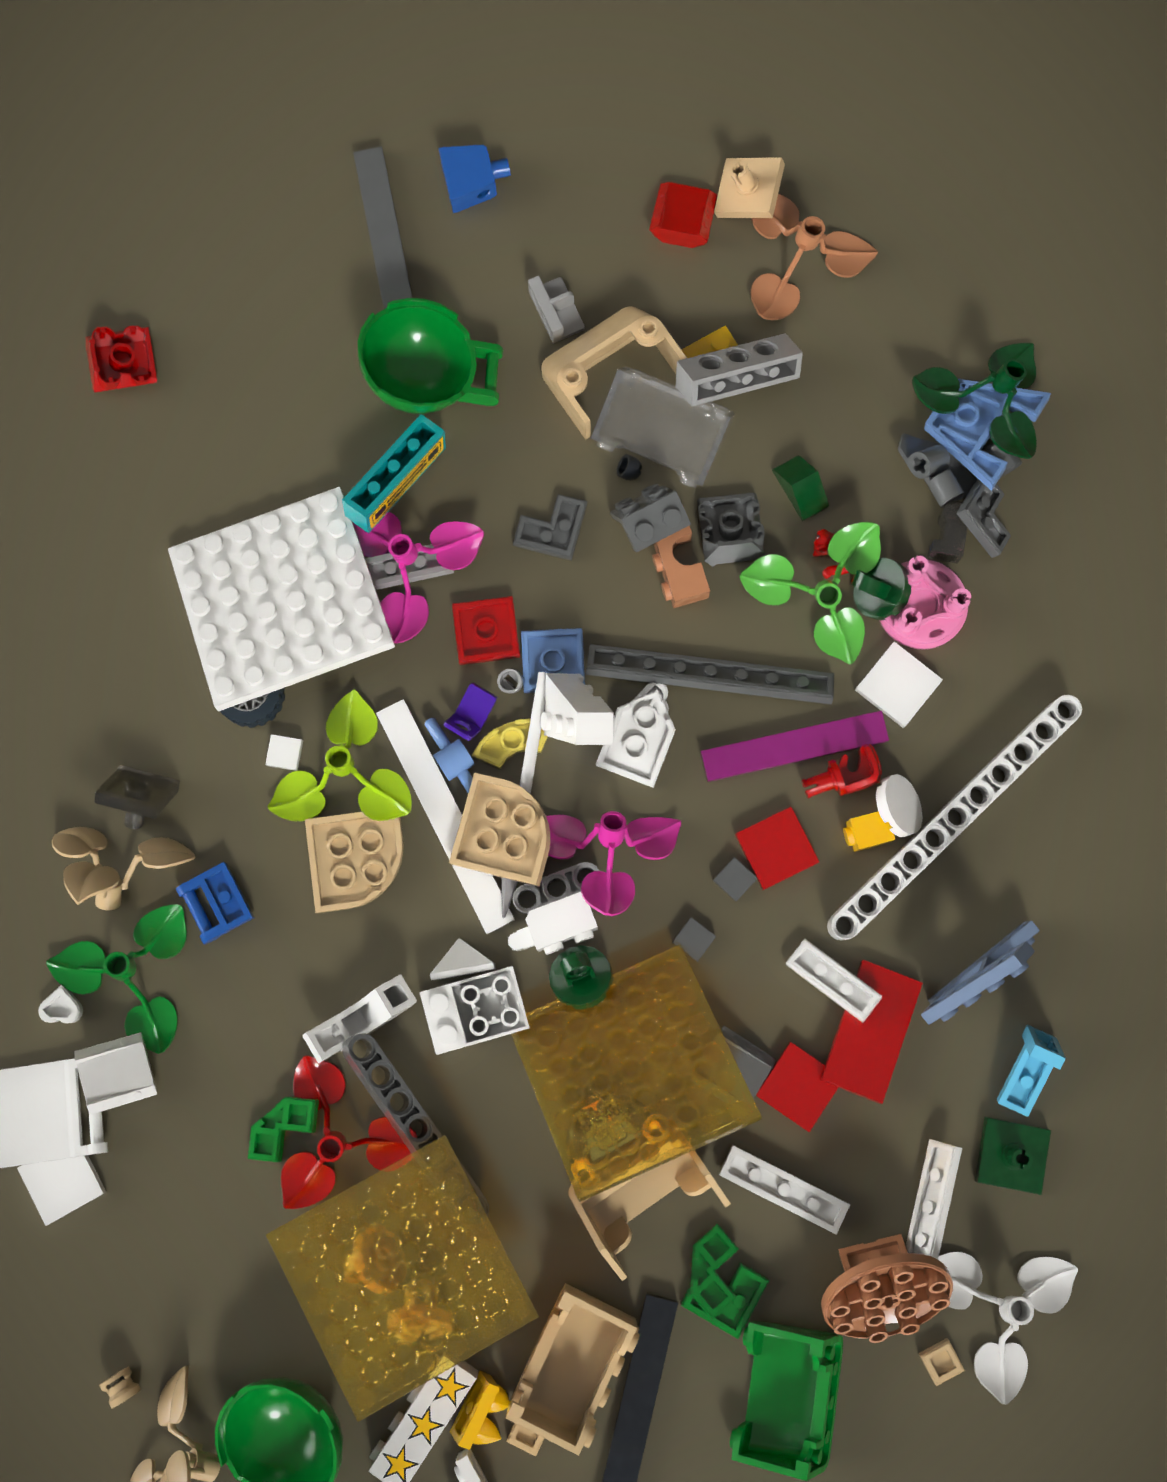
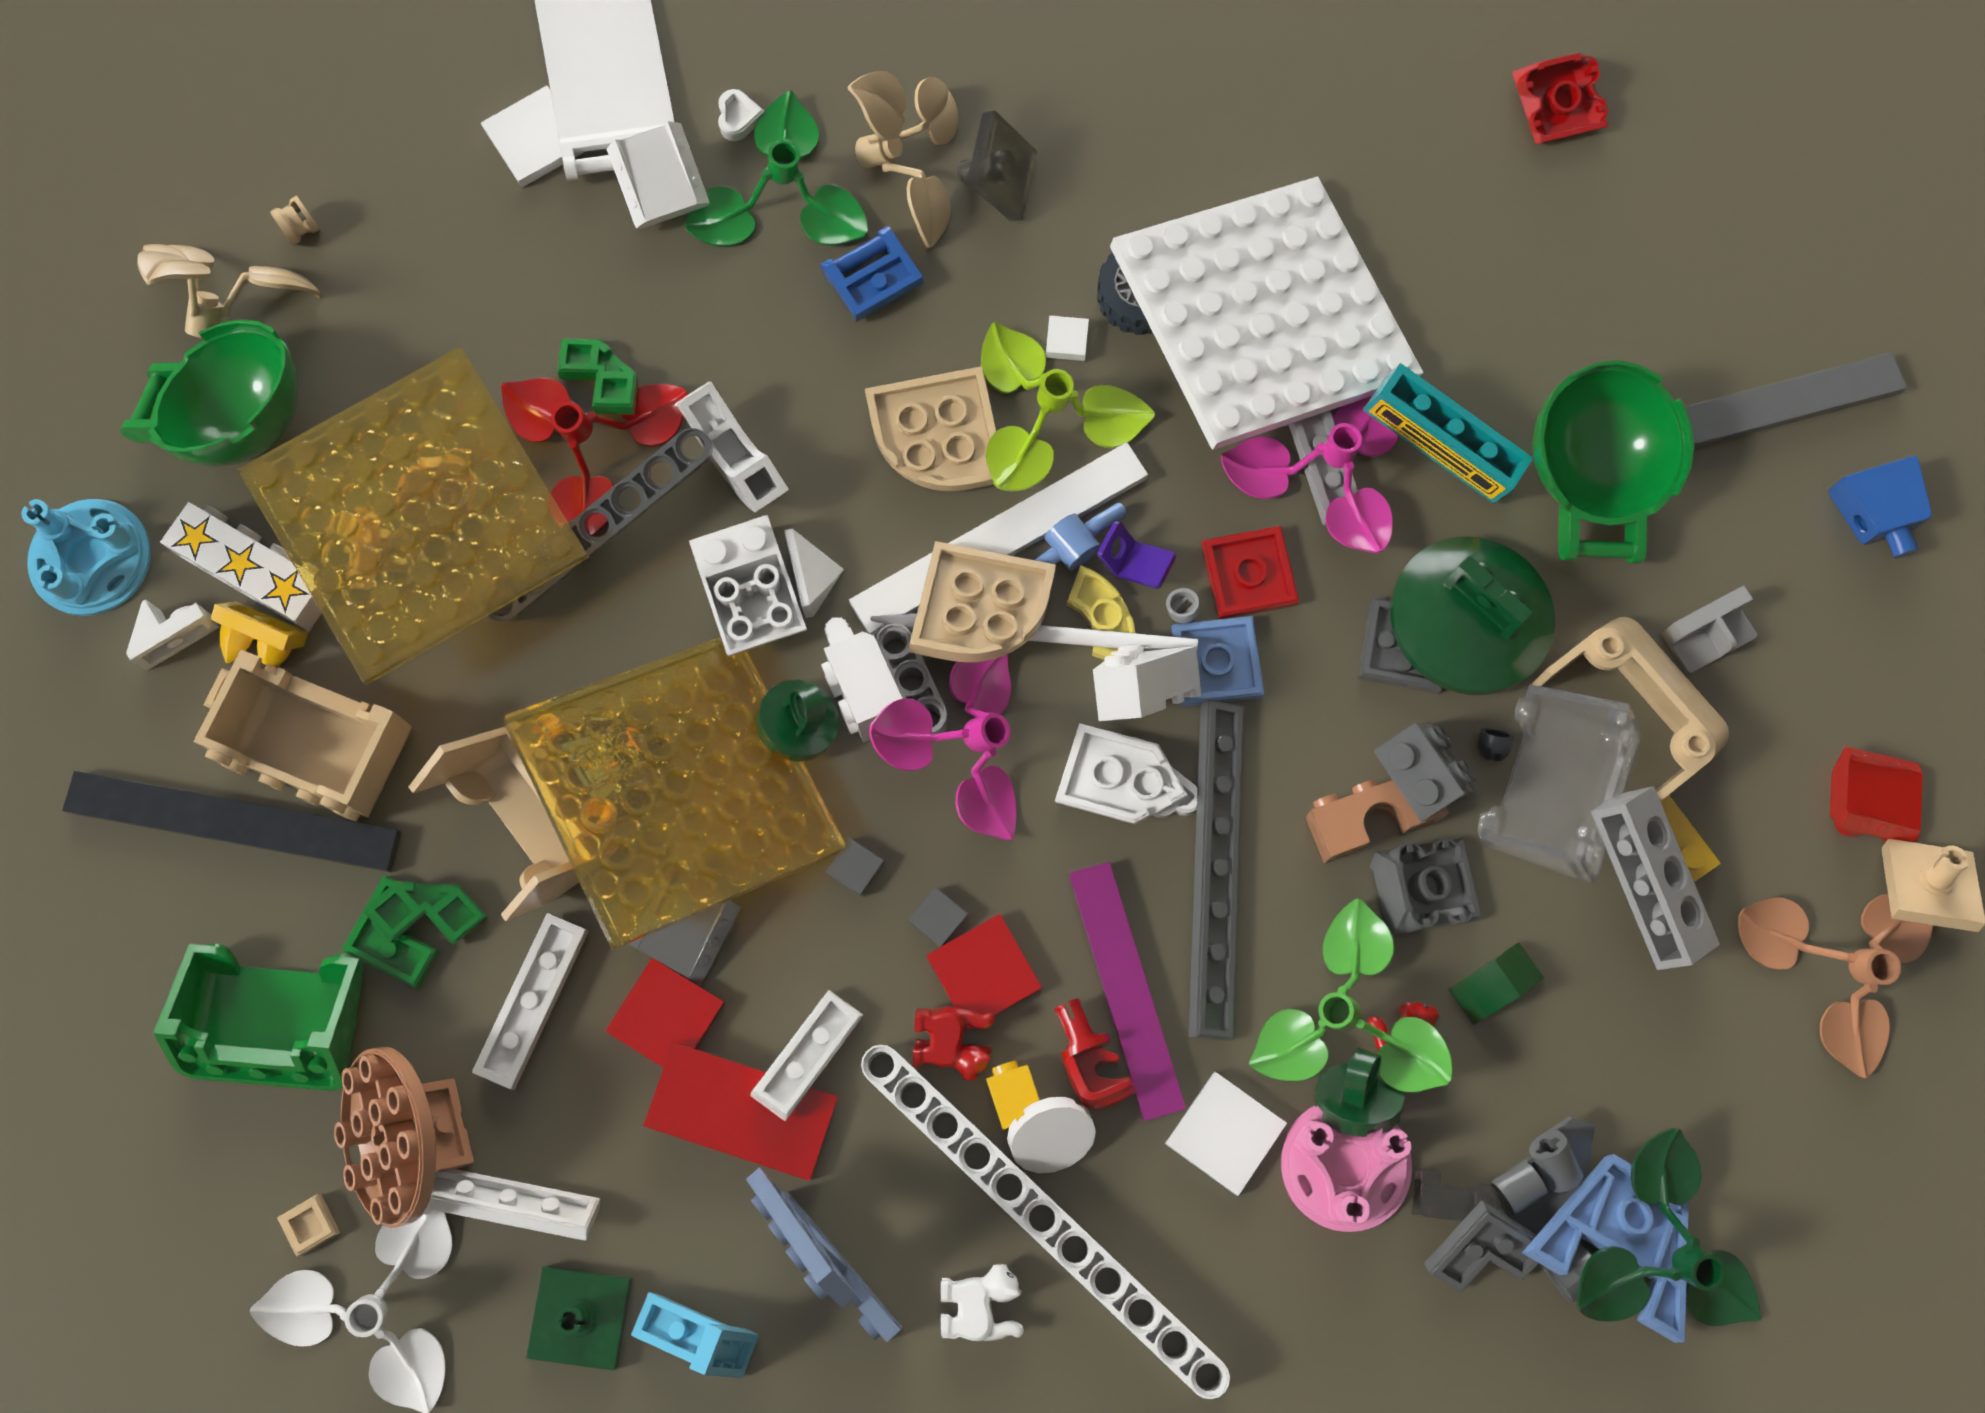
camera: 85 degrees right, 5 degrees down
(533, 472) = (1472, 615): none -> dark green bracket
(825, 877) = (945, 1048): none -> red animal
(1007, 868) = (974, 1306): none -> white animal

